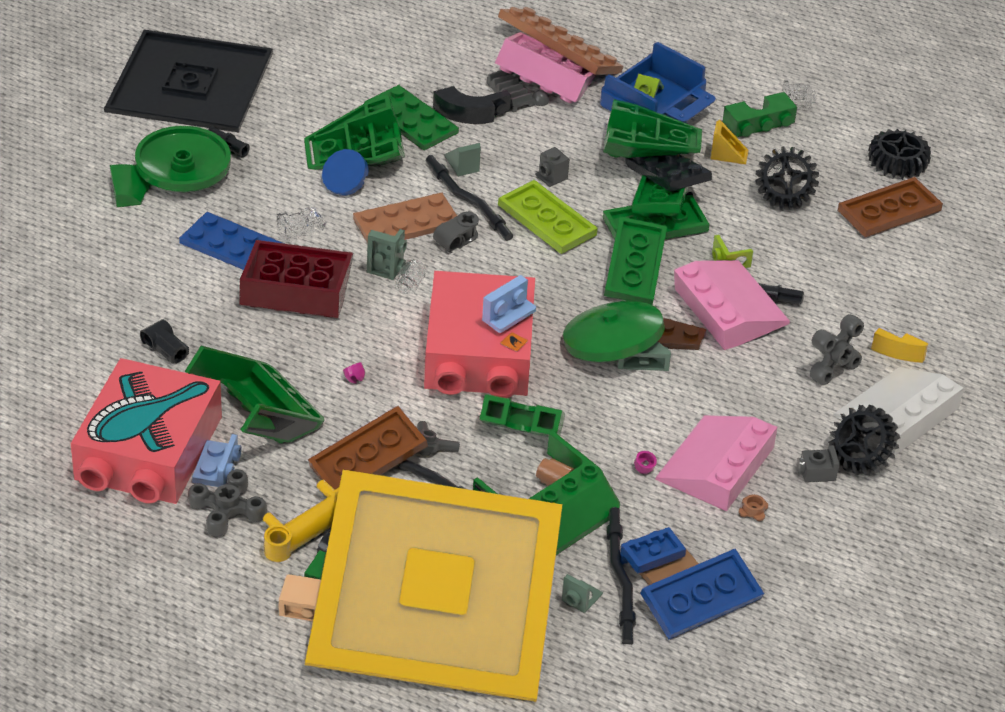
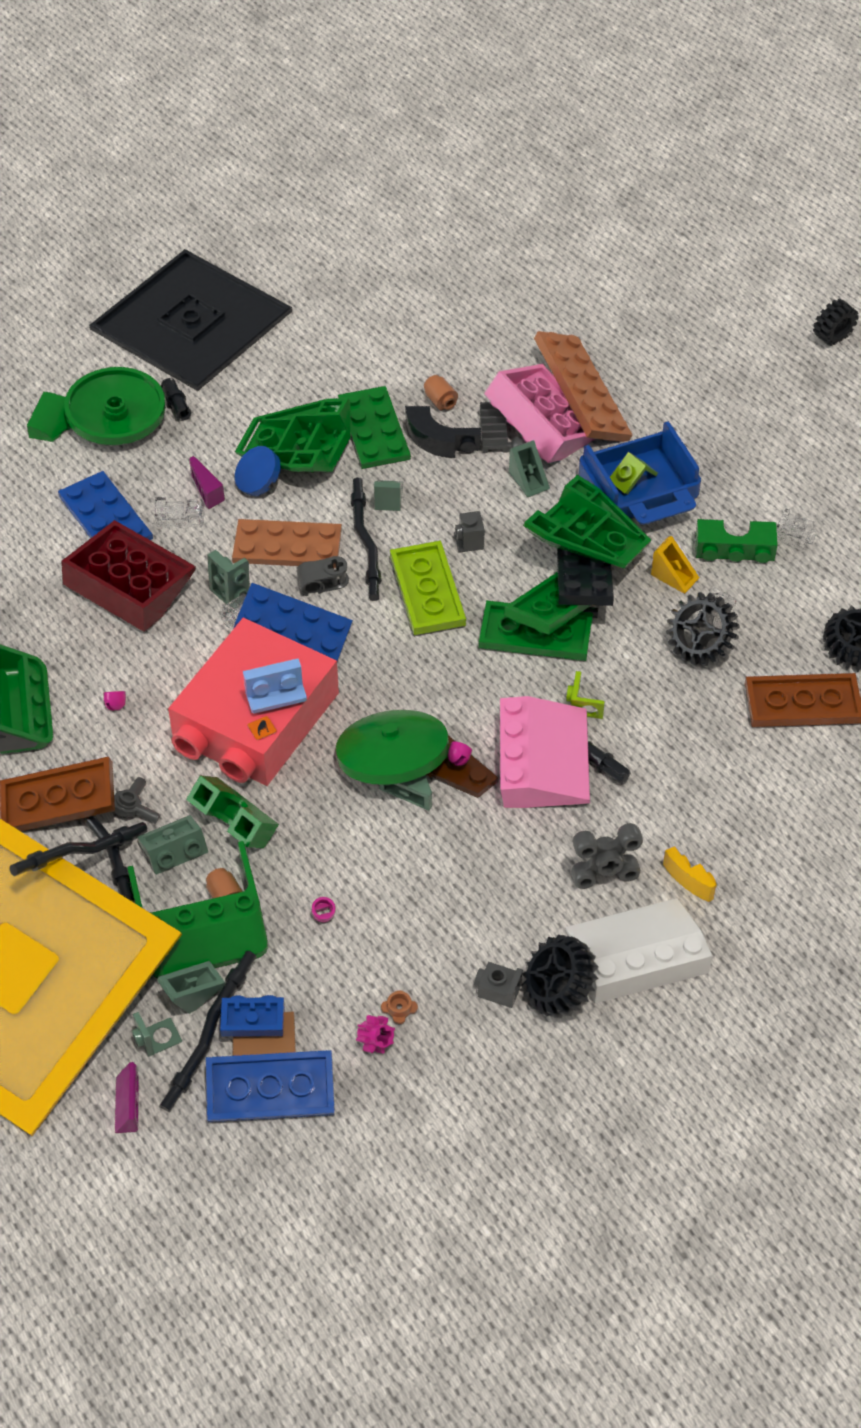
camera: 30 degrees right, 10 degrees up
(309, 194) = (208, 485): none -> magenta slope
(418, 484) = (39, 859): none -> black bar
(428, 261) = (296, 620): none -> blue plate
(448, 76) = (440, 392): none -> nougat brick
(488, 457) = (173, 844): none -> sand green bracket
(562, 110) = (527, 469): none -> sand green slope
(587, 548) = (192, 985): none -> sand green slope
(595, 644) = (127, 1100): none -> magenta slope
(635, 260) = (475, 672): green plate -> none
(671, 317) = (459, 753): none -> dark pink hinge
(719, 458) = (403, 935): bright pink slope -> none
(754, 529) = (375, 1034): none -> dark pink gear

